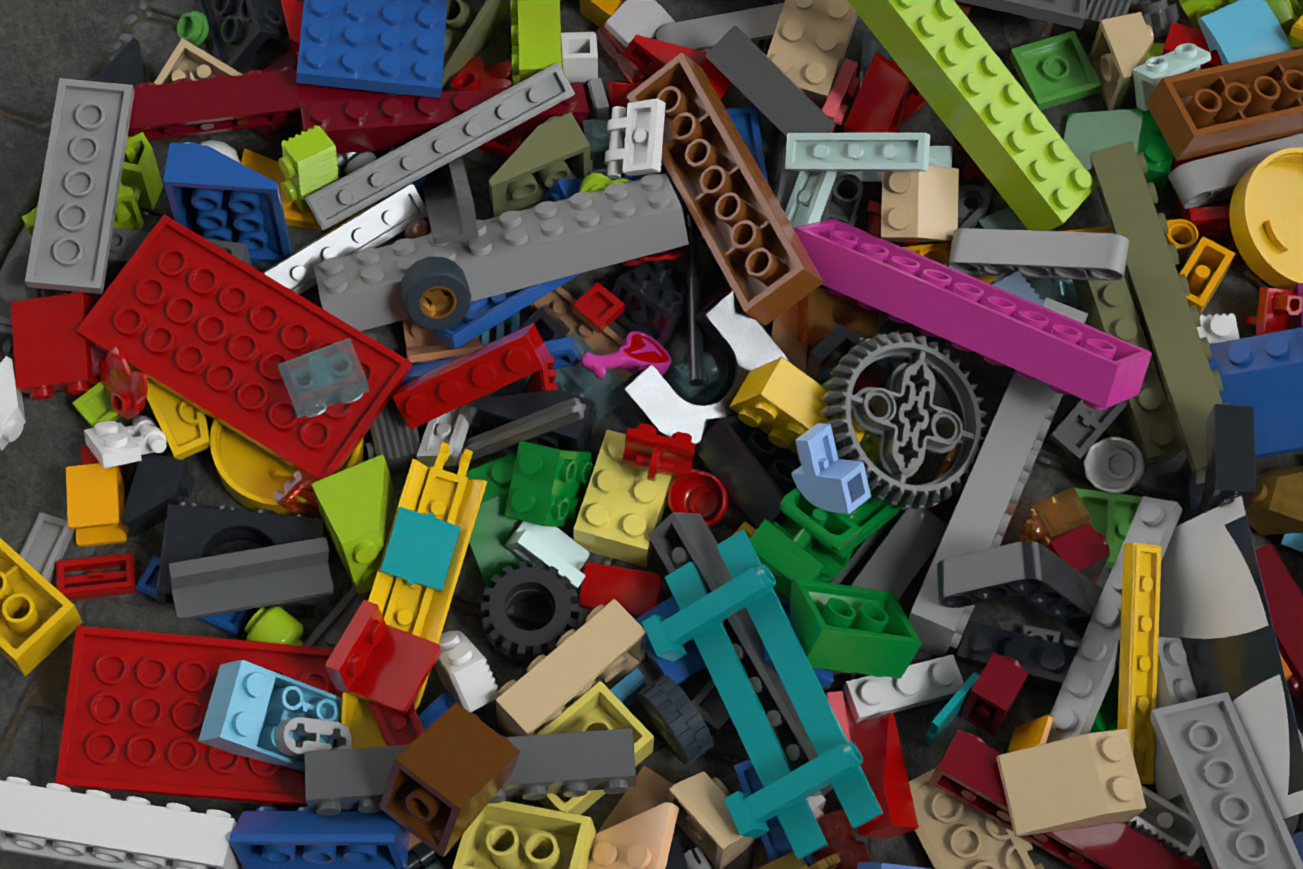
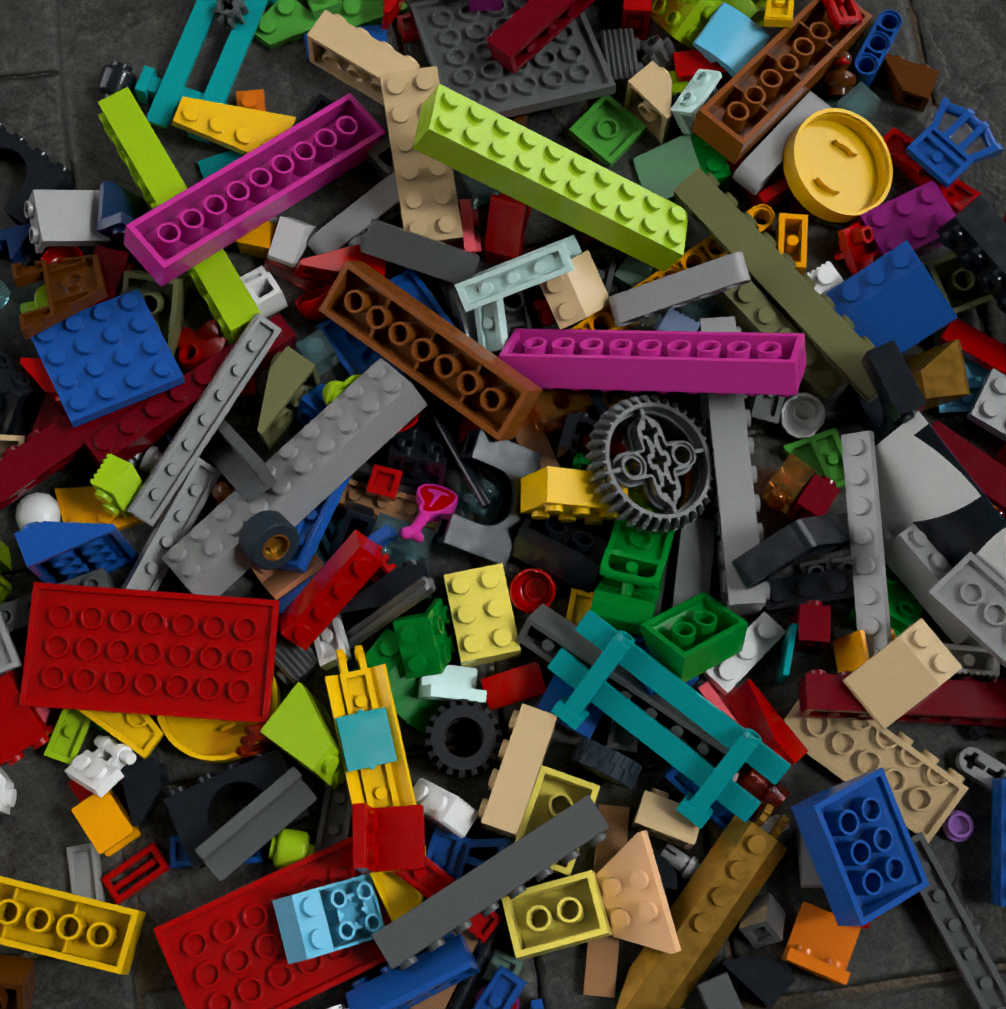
camera: 25 degrees left, 10 degrees up
(126, 387) = (83, 728): red plate -> none
(314, 730) = (366, 913): light grey beam -> none
(324, 378) = (226, 649): clear light blue brick -> none
(447, 778) = (486, 902): reddish brown slope -> none
(597, 99) = (295, 320): light grey tile -> none
(627, 688) = (560, 756): dark azure tile -> none
(643, 139) = (352, 342): white plate -> none
(658, 453) = (493, 578): red hips -> none
(823, 478) = (624, 539): light blue brick -> none
(1139, 652) = (896, 551): yellow tile -> none

